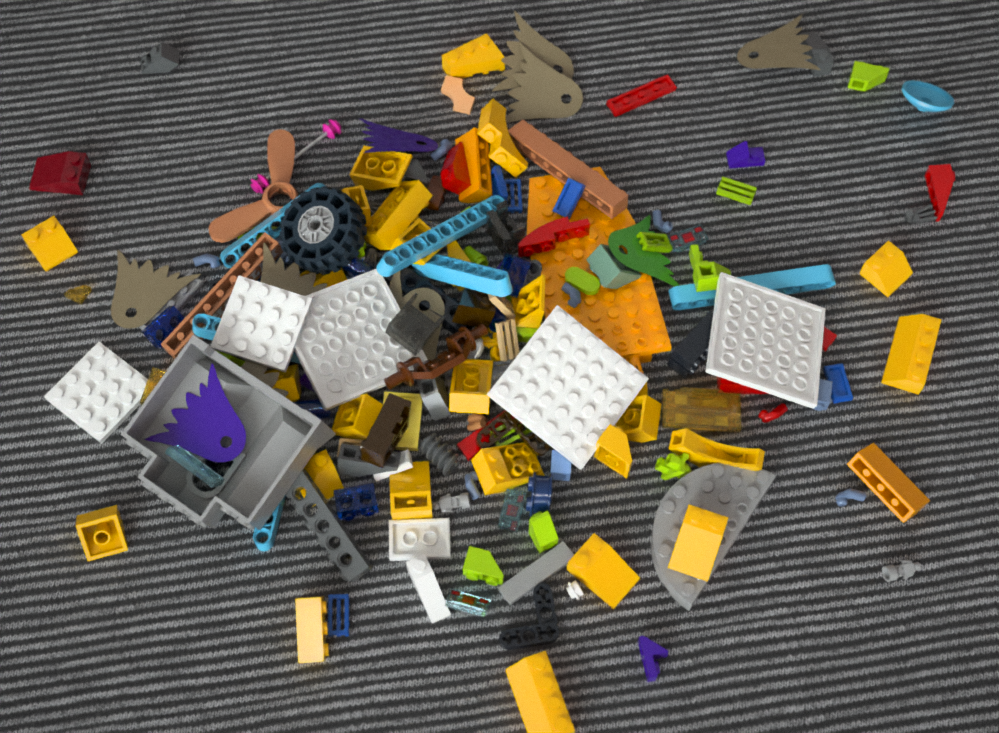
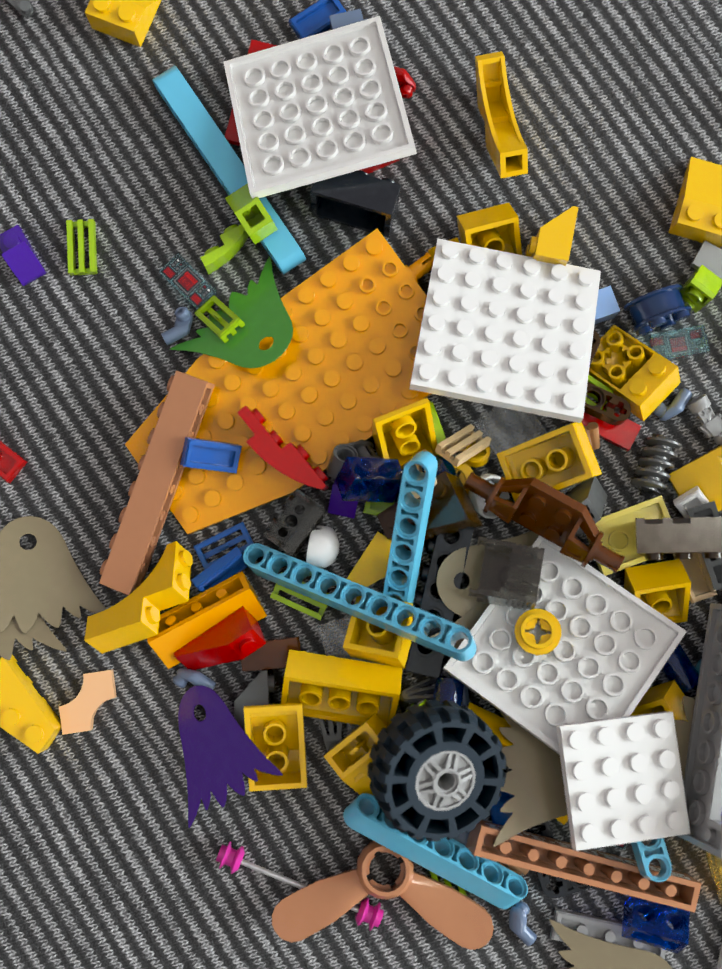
camera: 115 degrees left, 20 degrees up
(367, 317) = (547, 623): none -> yellow gear
(475, 256) = (350, 549): lime cone -> none
(484, 241) = (322, 547): none -> white hair
(574, 294) = (361, 382): sand blue arm -> none
(582, 280) = (332, 382): lime tile -> none
(609, 269) = (305, 352): sand green slope -> none
(673, 466) = (539, 166): lime hips -> none
(698, 542) = (638, 86): yellow slope -> none
(701, 410) = (443, 167): clear yellow piece -> none
(715, 488) = (595, 106): light grey brick -> none

